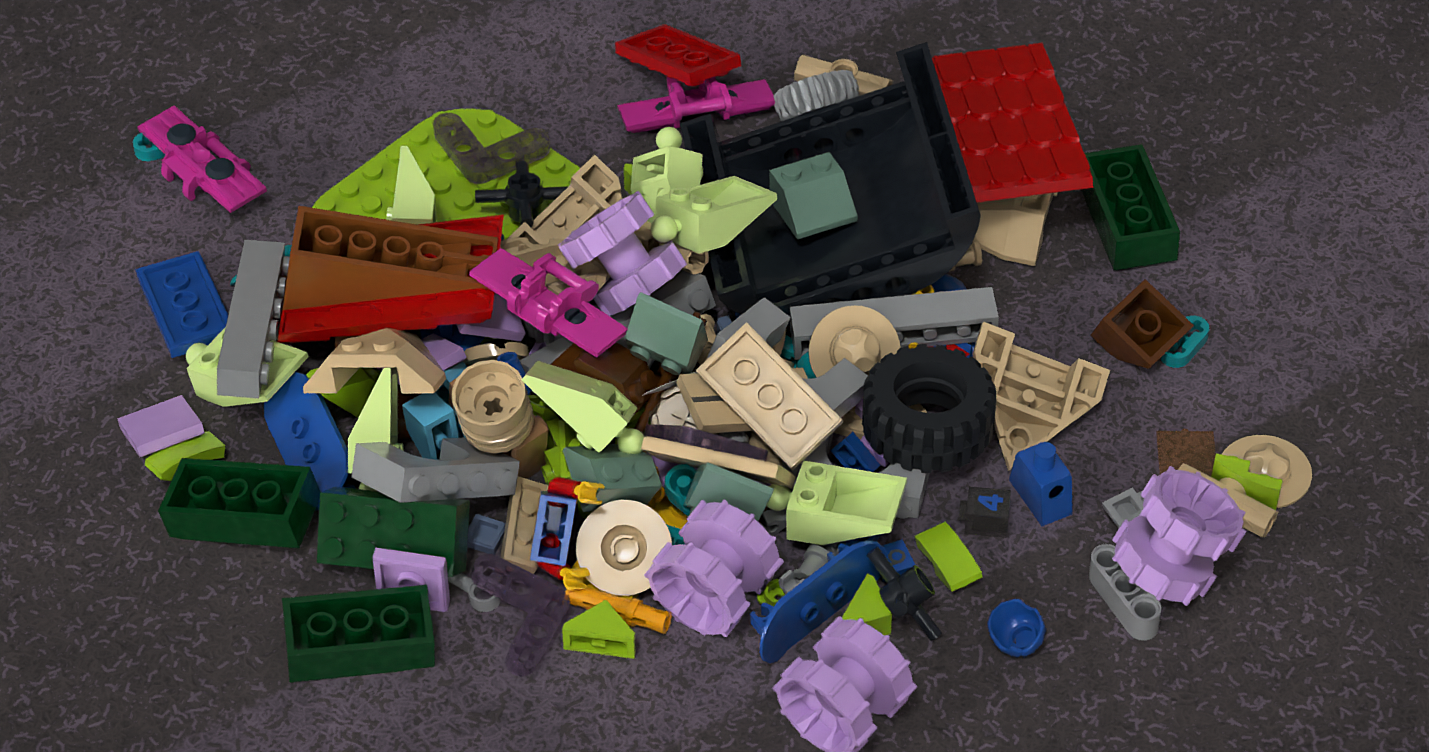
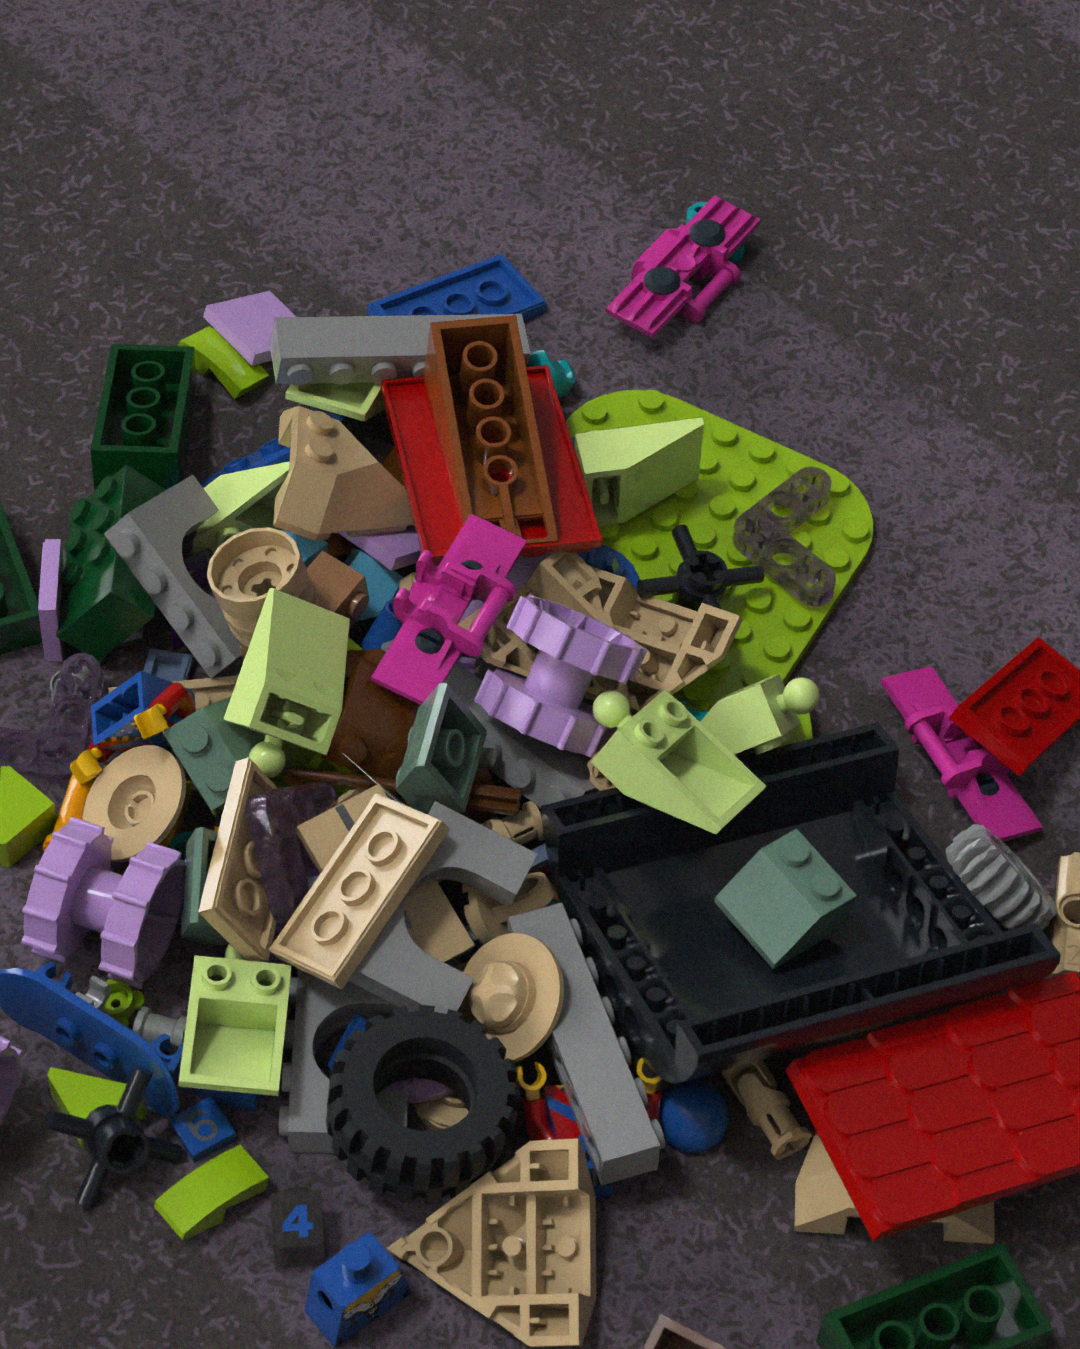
camera: 75 degrees right, 5 degrees up
(1017, 622) = (89, 1281): blue hair -> none

